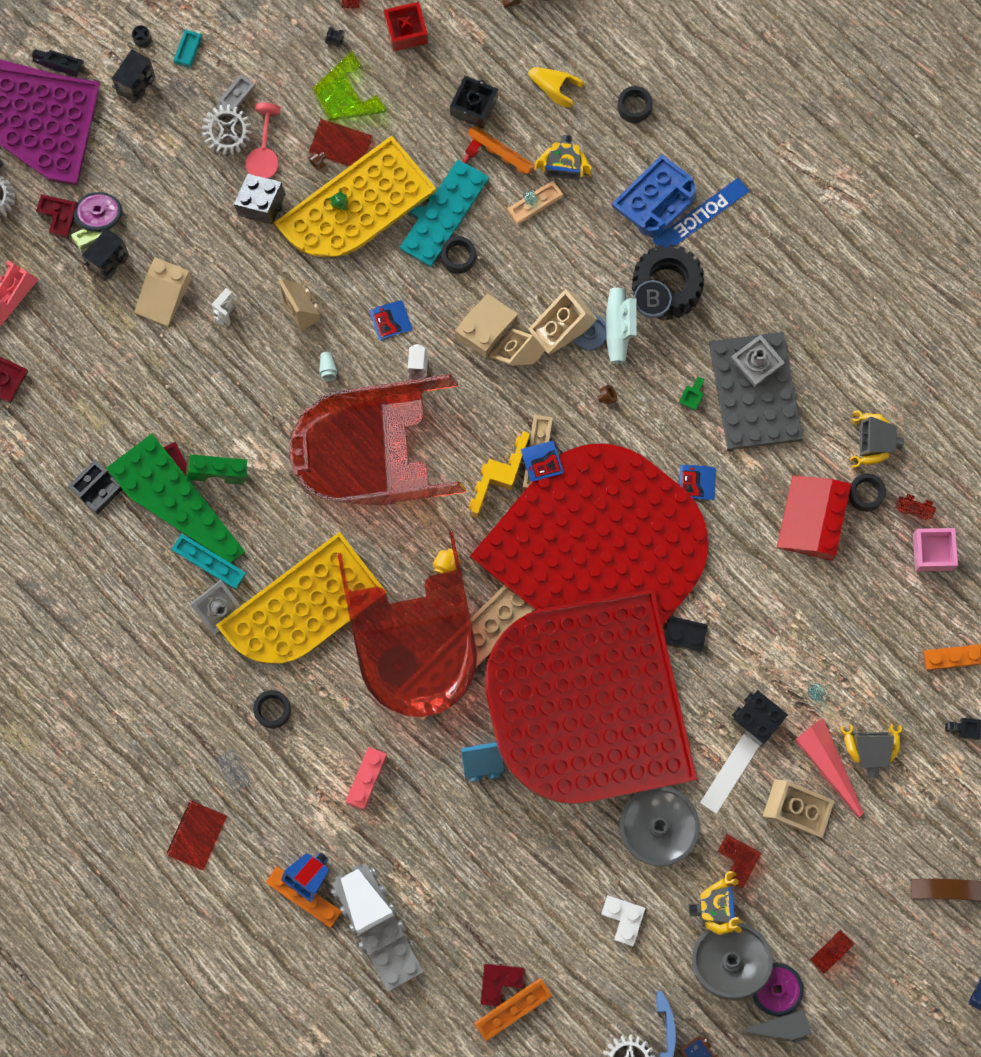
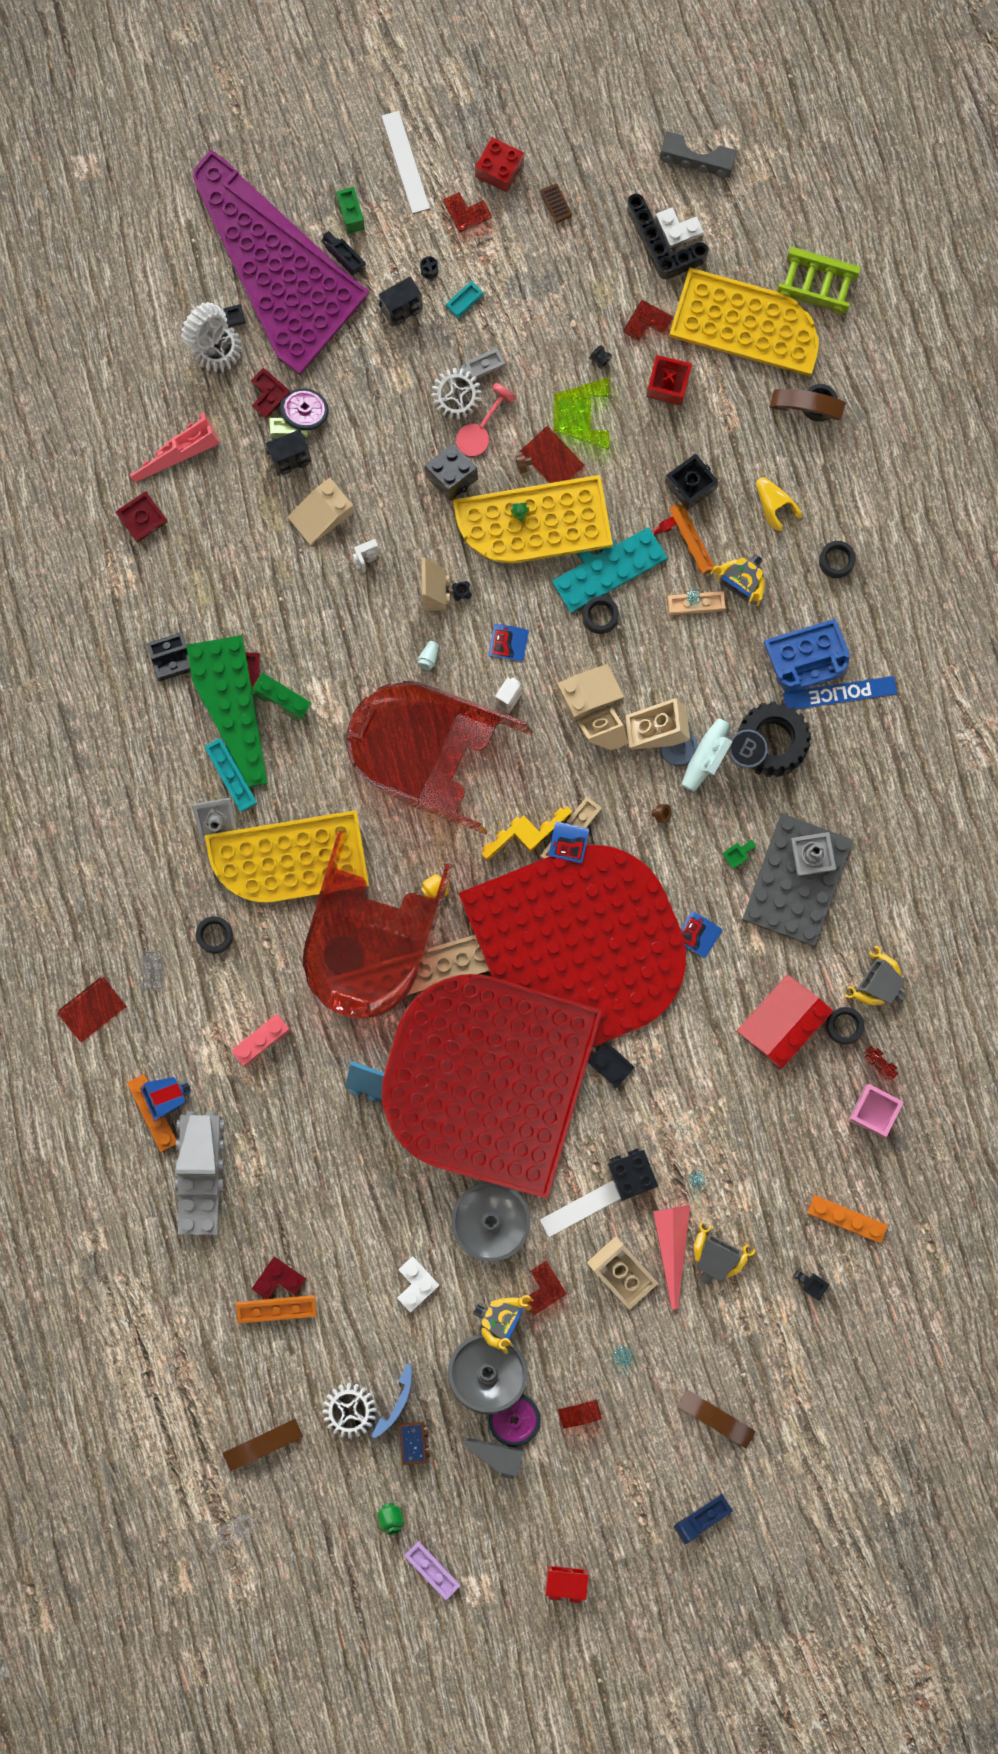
camera: 30 degrees right, 5 degrees up
(44, 21) = (350, 210): none -> green panel
(320, 296) = (461, 586): none -> black plate
(839, 885) = (617, 1355): none -> clear light blue plate

